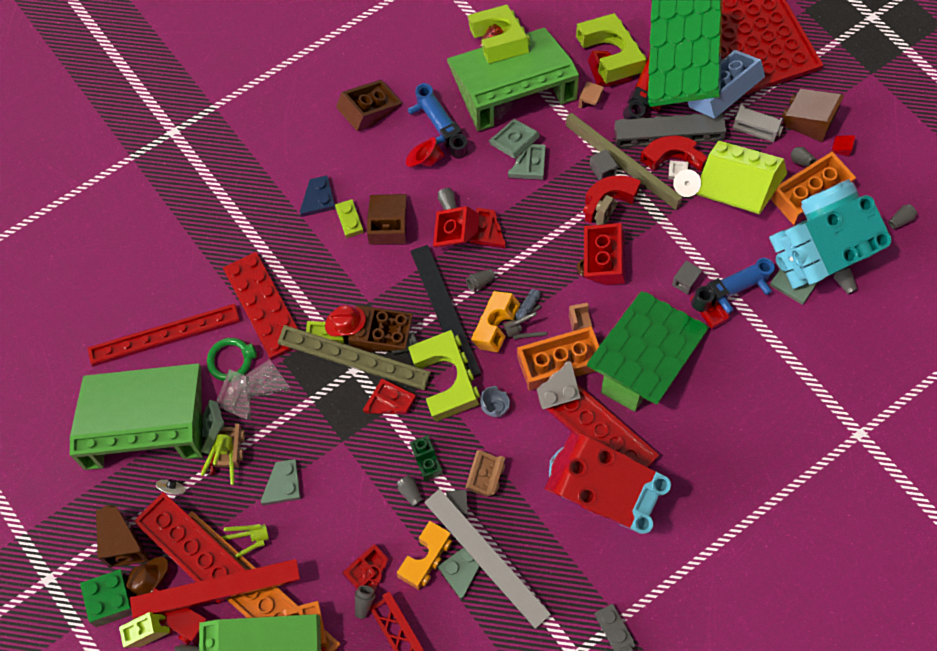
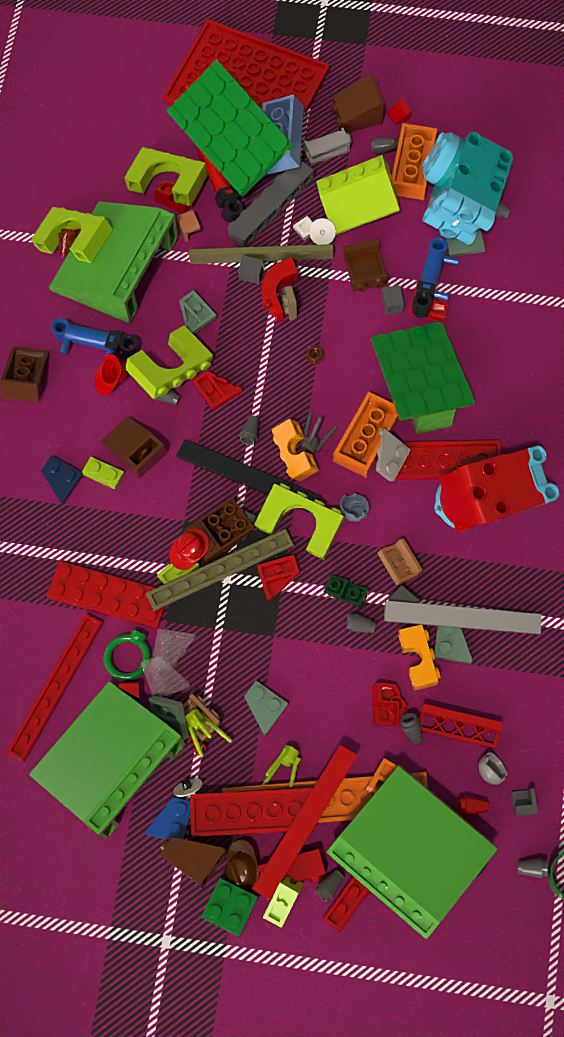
camera: 45 degrees left, 5 degrees up
(135, 499) = (171, 821): none -> blue wing
(208, 385) = (131, 689): none -> red slope
(449, 186) = (158, 380): none -> lime arch
(455, 226) = (195, 407): red slope -> none
(514, 138) = (165, 305): sand green tile -> none
(528, 304) = (303, 418): sand blue axle -> none
(579, 316) = (348, 395): nougat panel -> none
(604, 253) = (321, 332): red slope -> none
(672, 147) = (289, 212): red arch -> none
(693, 235) = (365, 265): none -> reddish brown panel
(903, 216) = (490, 128): dark grey cone -> none

